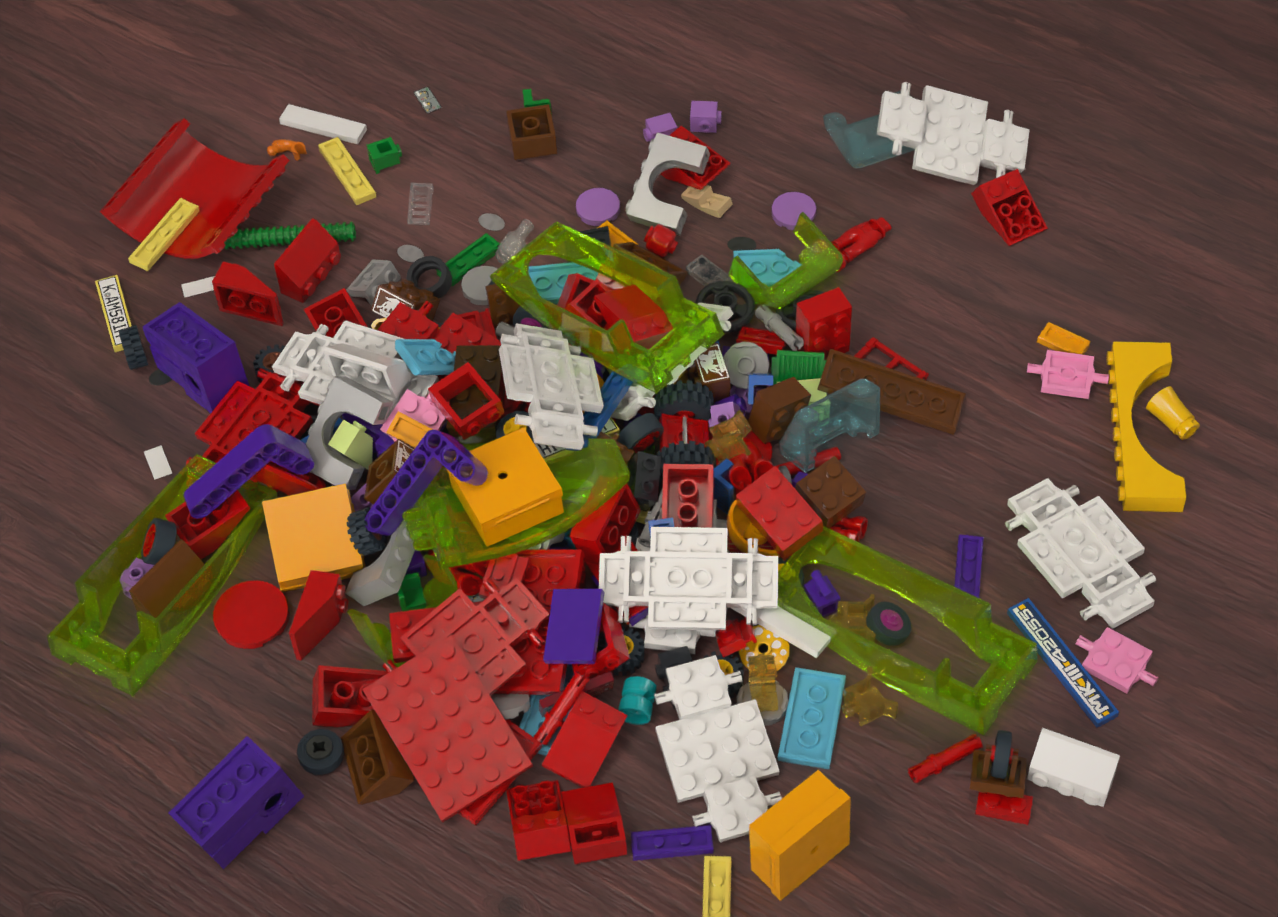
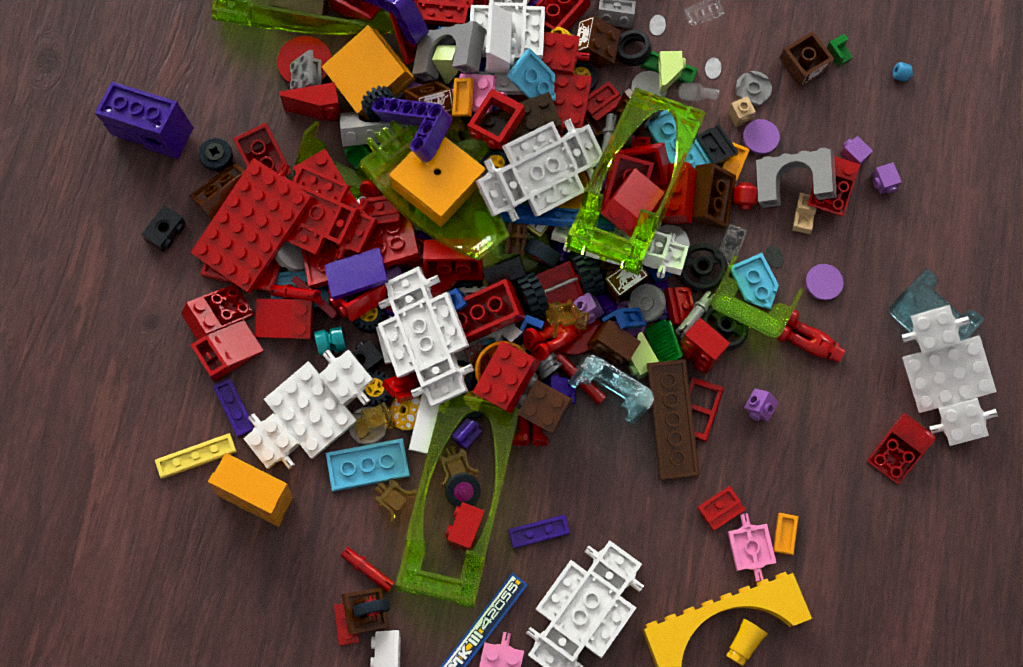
camera: 60 degrees right, 20 degrees up
(271, 608) = (305, 71): none -> light grey bracket
(394, 857) = (164, 218): none -> black brick
(474, 252) = (670, 68): none -> yellowish green slope
(537, 194) = (755, 86): none -> light grey tile
(561, 208) = (741, 111): none -> tan brick
(590, 64) = (902, 72): none -> dark azure piece
(724, 496) = (511, 332): none -> white sticker
(910, 307) = (761, 405): none -> medium lavender brick
(942, 626) = (465, 527): none -> red brick
(1012, 386) = (721, 508): none -> red plate

